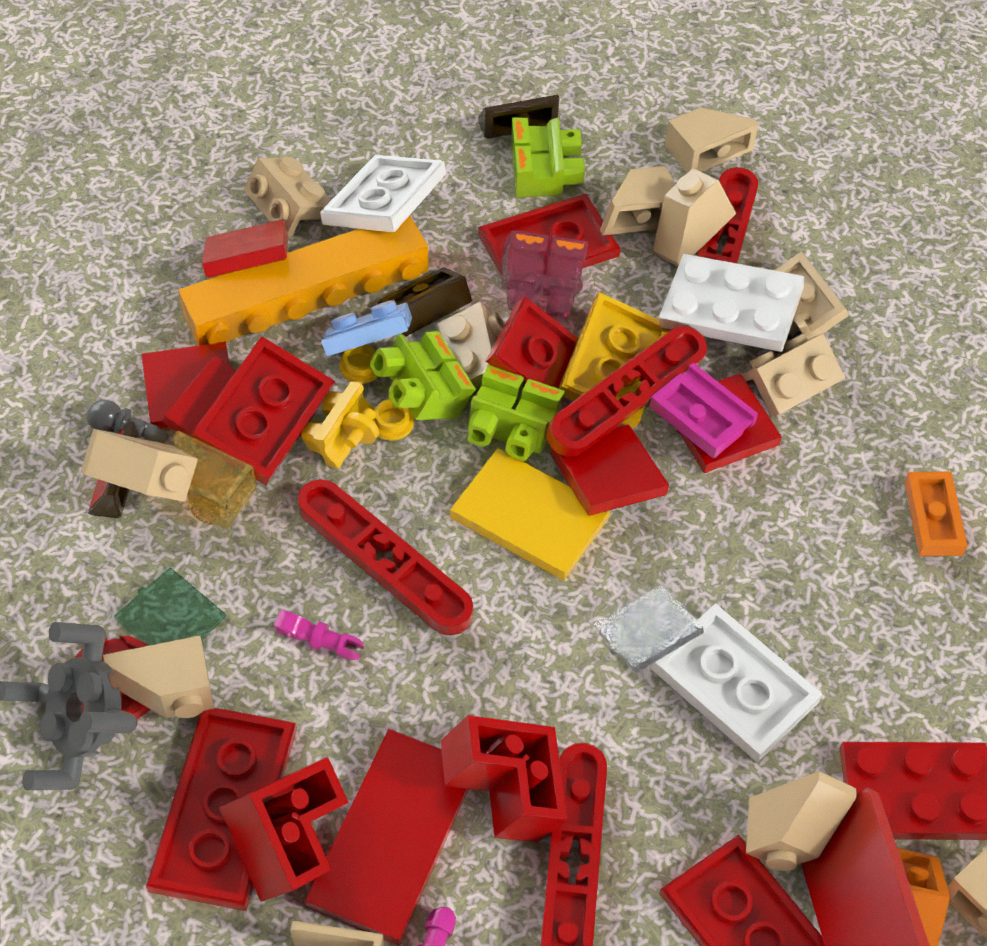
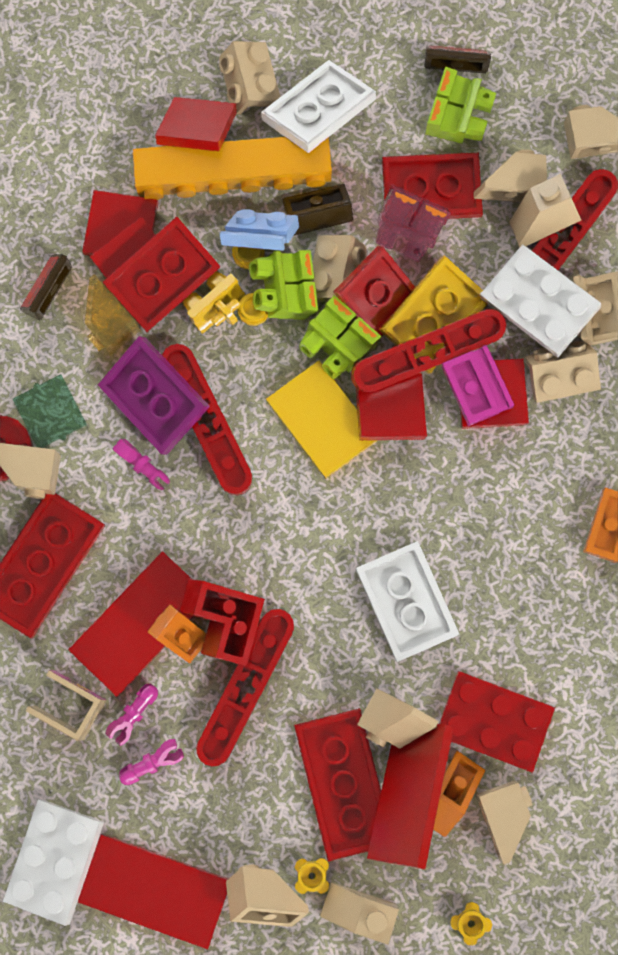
camera: 25 degrees right, 25 degrees up
(109, 417) = (54, 238): dark grey bar -> none
(139, 465) = (56, 300): tan slope -> none
(276, 829) = (63, 595): red brick -> none
(305, 544) = (153, 395): none -> magenta plate
(456, 814) = (178, 634): none -> orange plate
(648, 628) = (364, 541): clear piece -> none

